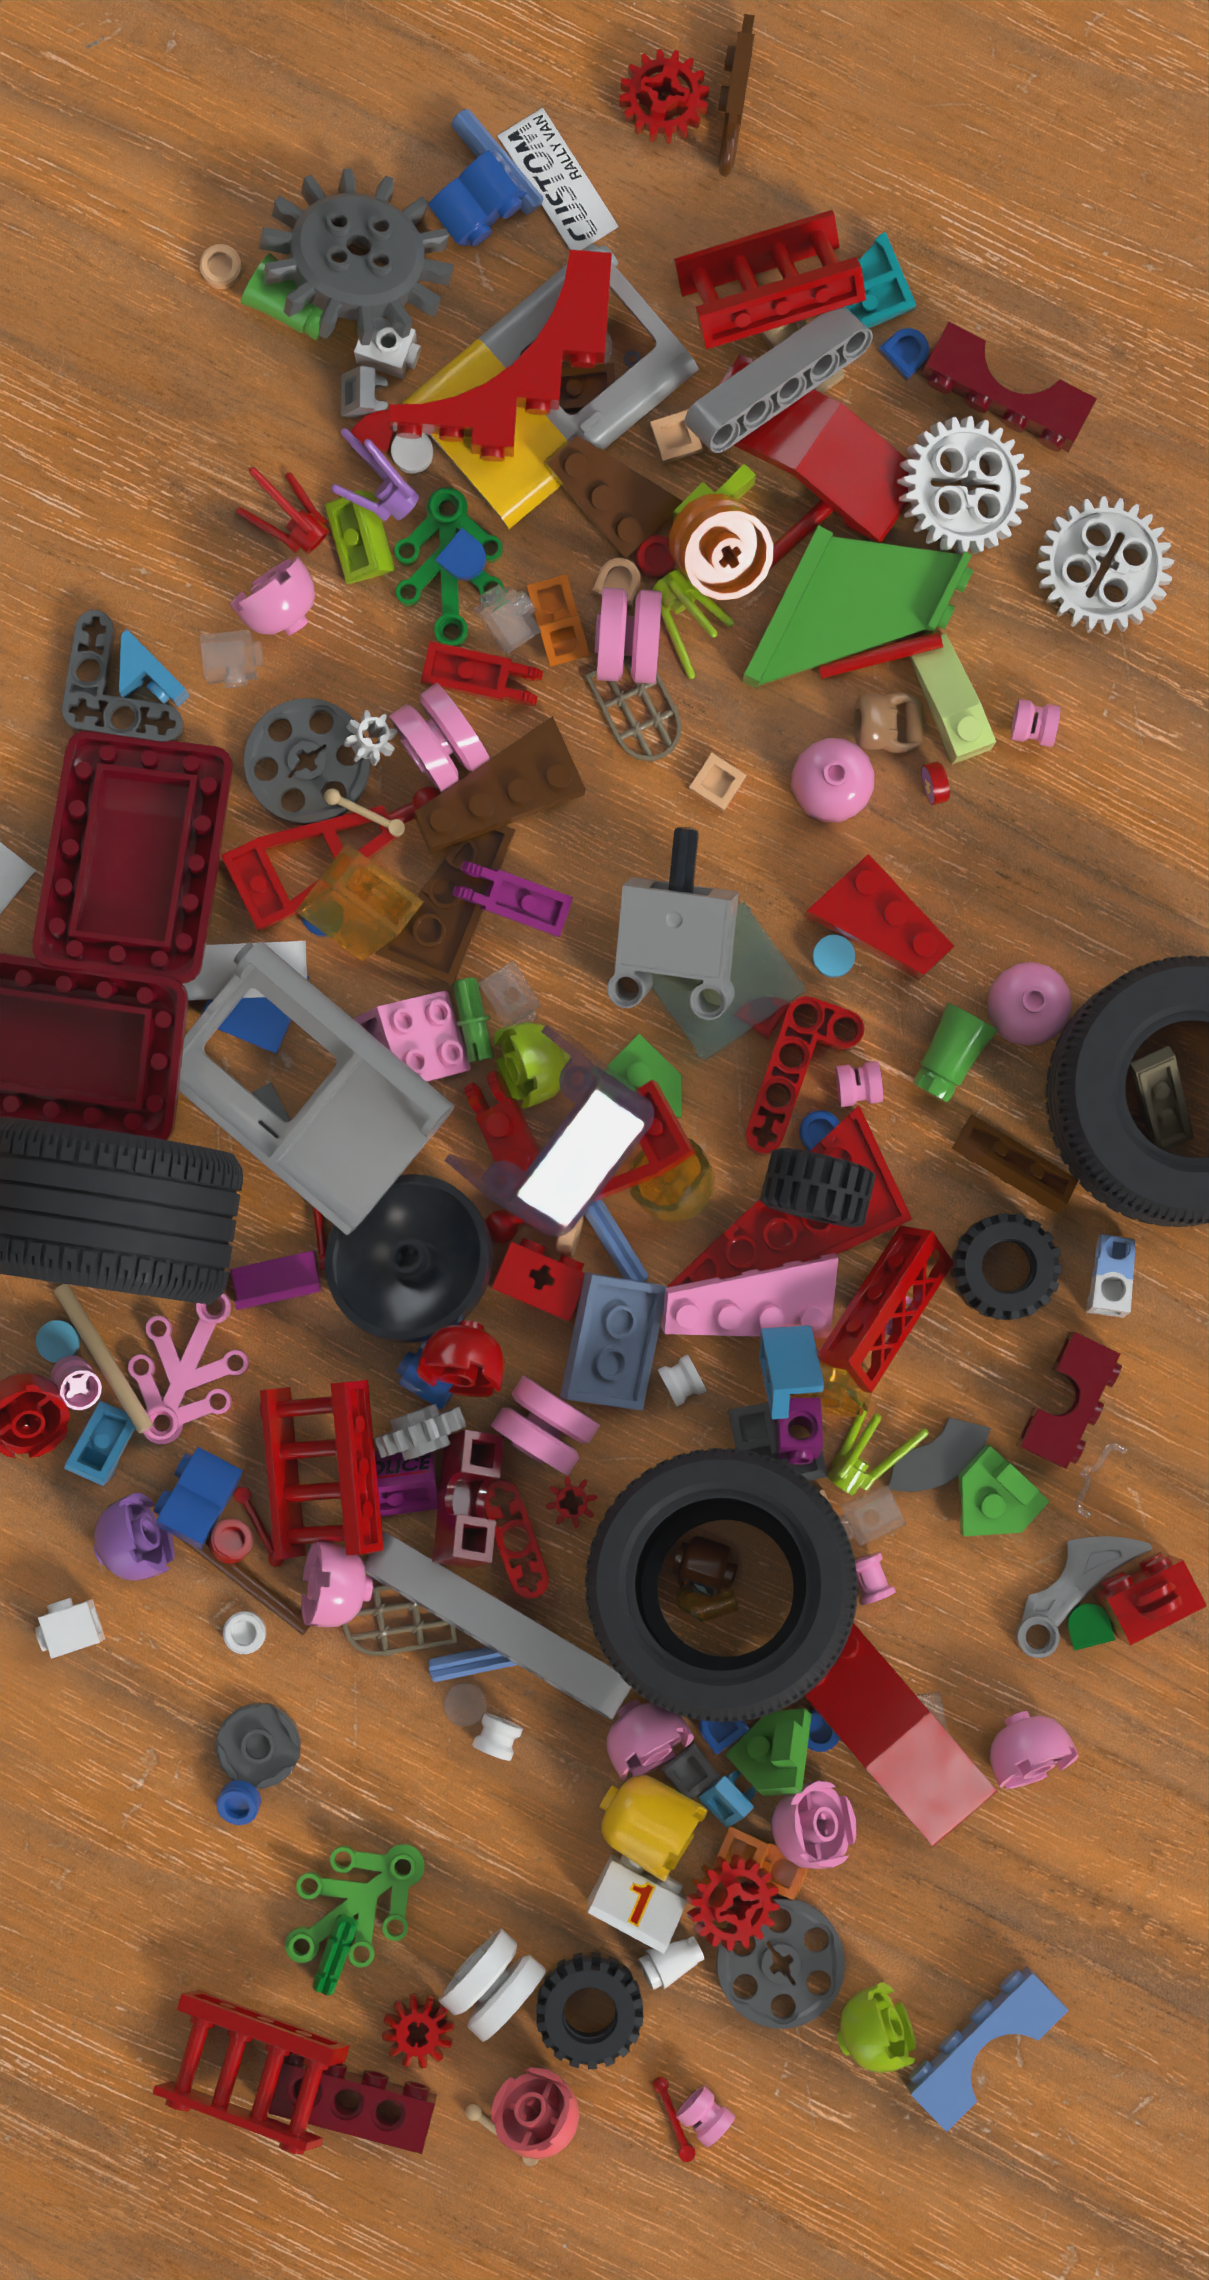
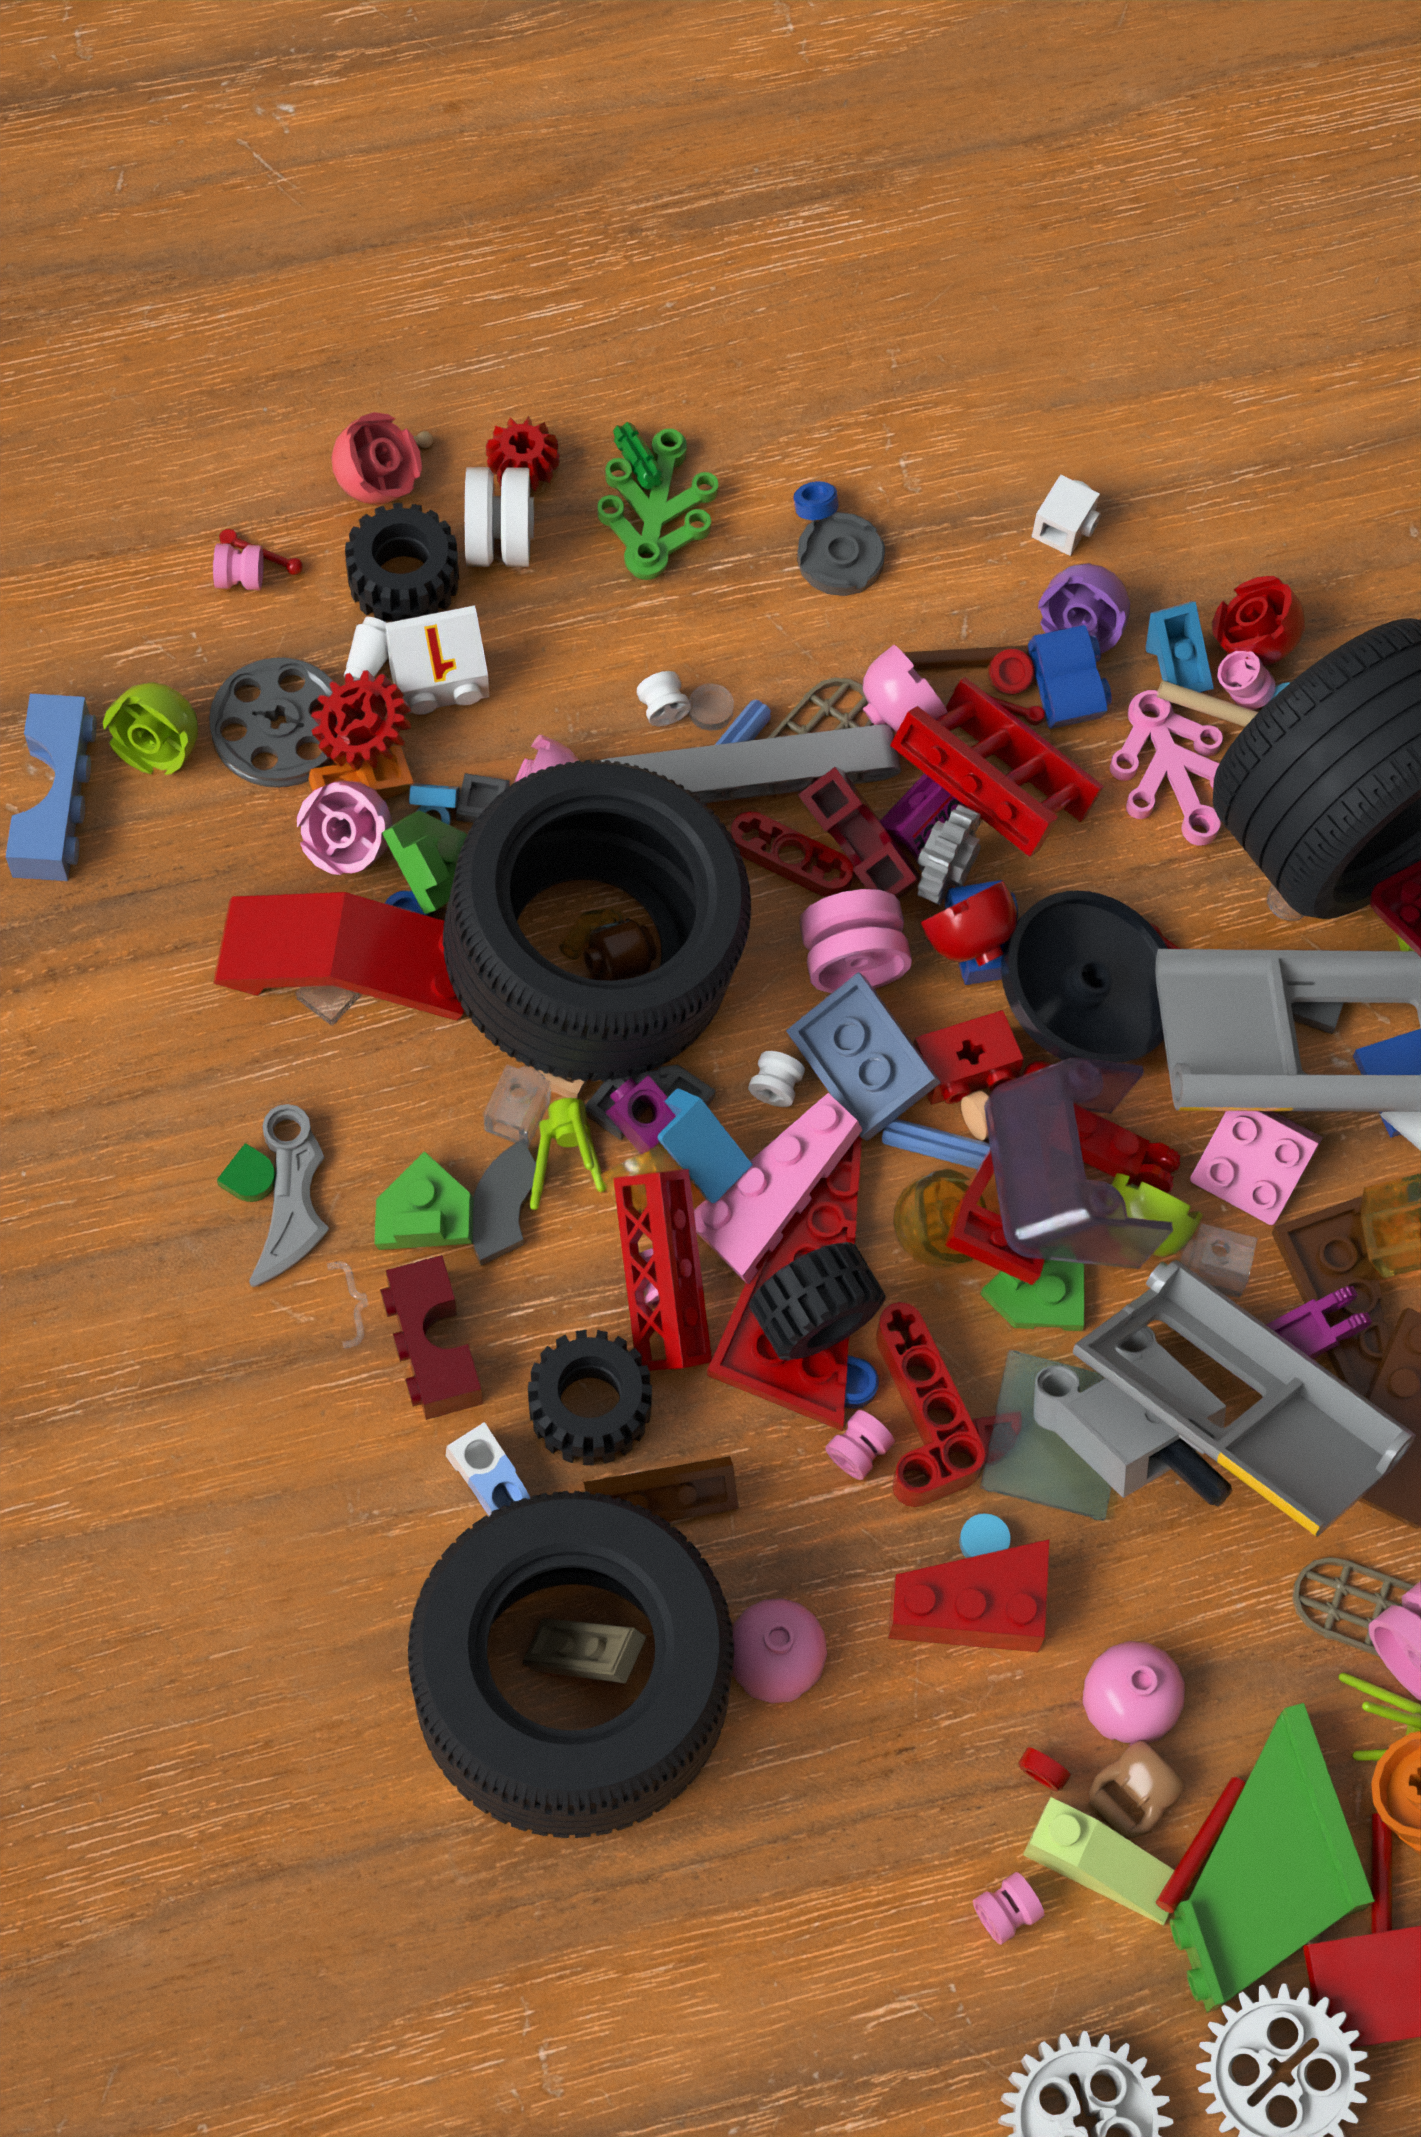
camera: 140 degrees right, 20 degrees down
(244, 1632) = (932, 621): white tile -> none
(276, 1280) = (1173, 883): magenta panel -> none
(280, 2040) = (624, 358): red fence -> none
(363, 2121) = (543, 350): dark red brick -> none
(473, 1019) = (1227, 1214): bright green axle -> none
(564, 1511) = (775, 913): red gear -> none
(599, 818) = (1303, 1446): none -> light grey piece
(650, 1823) = (481, 726): yellow cylinder -> none
(717, 782) = (1228, 1601): light nougat tile -> none
(871, 1579) = (472, 1057): bright pink bush -> none
(952, 1052) = (806, 1544): bright green plant -> none
(1029, 1750) = (216, 1030): bright pink cylinder -> none
(1150, 1597) = (217, 1225): red brick -> none

